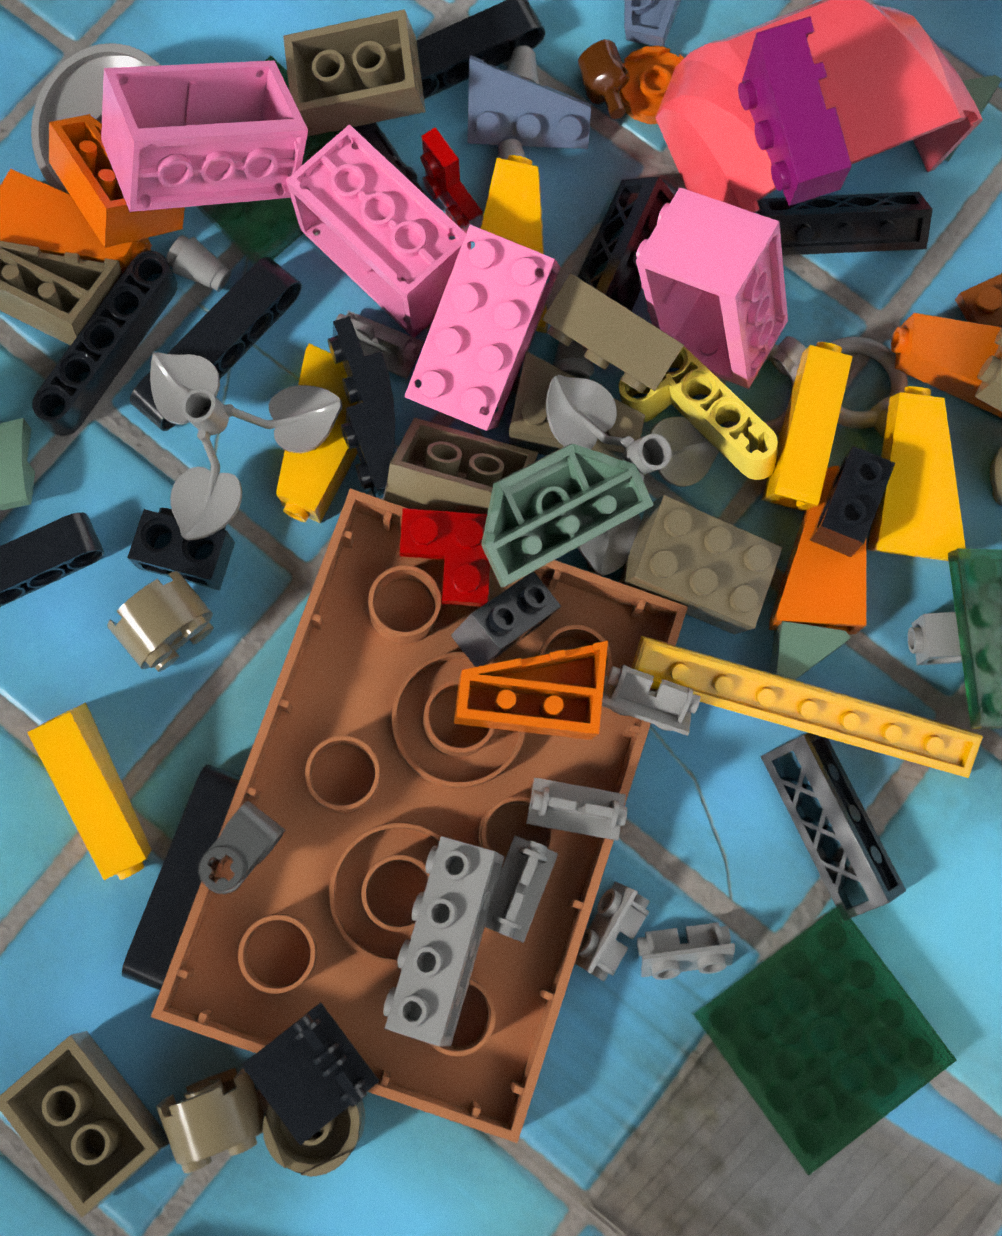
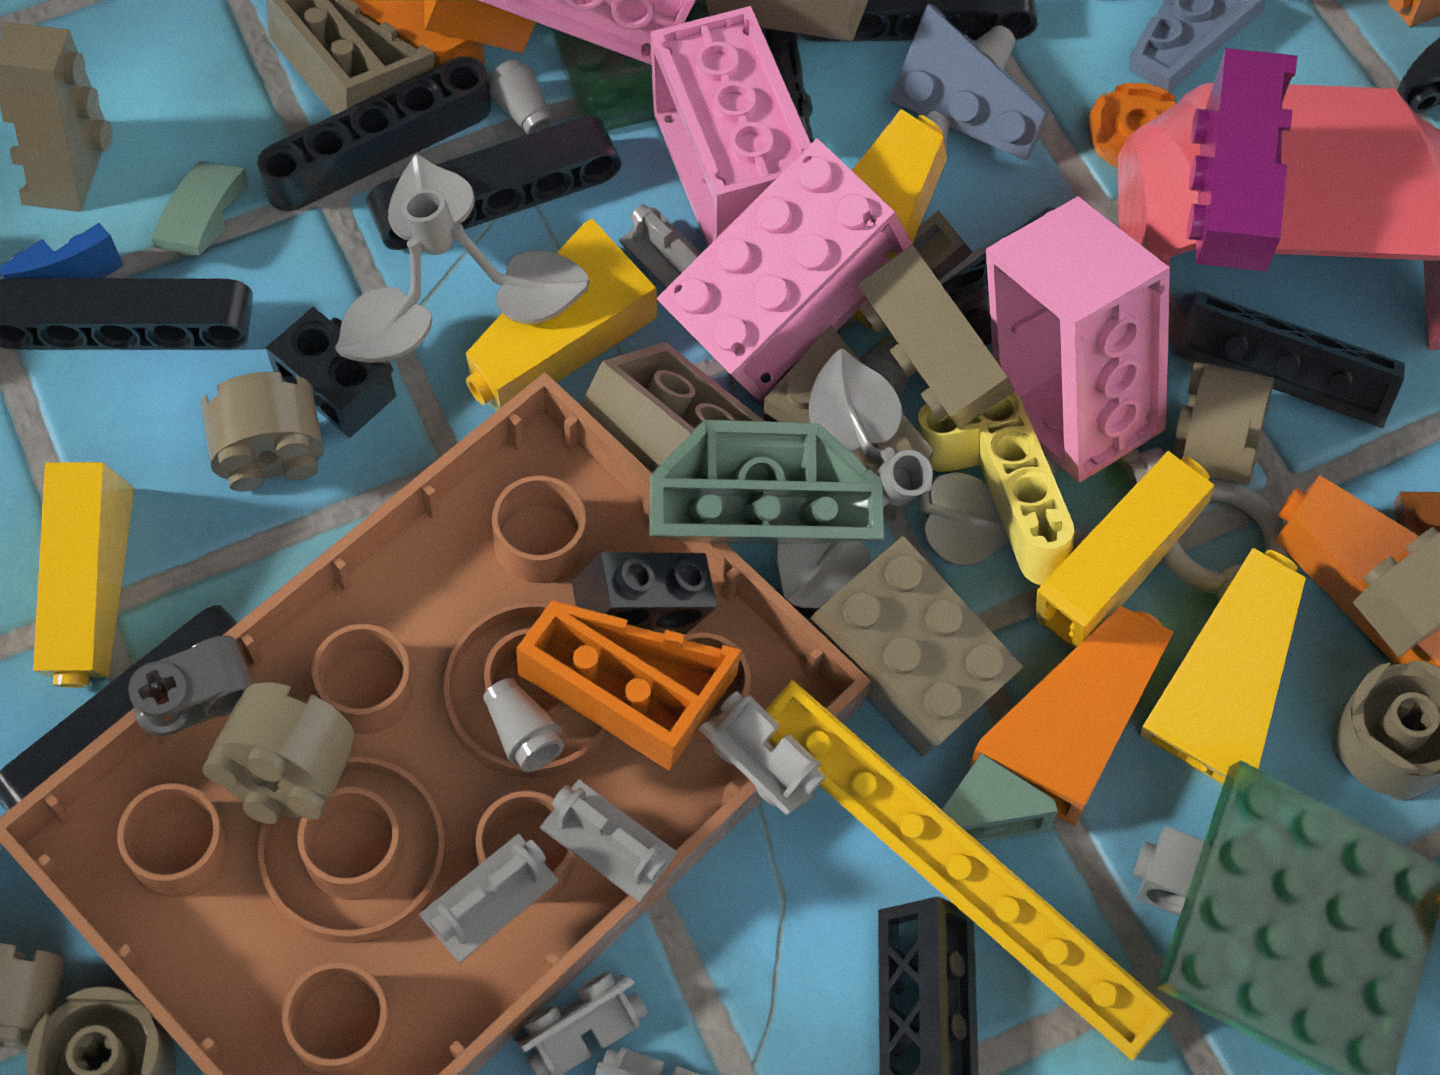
camera: 25 degrees right, 15 degrees down
(310, 1073) = (125, 982): black hinge -> none
(328, 866) = (280, 753): none -> dark tan brick
(372, 420) = (619, 307): black slope -> none
(443, 942) = (364, 906): light grey brick -> none
(444, 181) = (839, 102): red plate -> none
(457, 541) = (622, 470): red plate -> none
(479, 760) = (523, 726): none -> light grey cone
(565, 248) = (940, 245): none -> dark grey plate
(604, 76) = (1081, 92): reddish brown piece -> none
(828, 299) = (1224, 421): none -> dark tan brick
(852, 501) = (1132, 647): black brick -> none

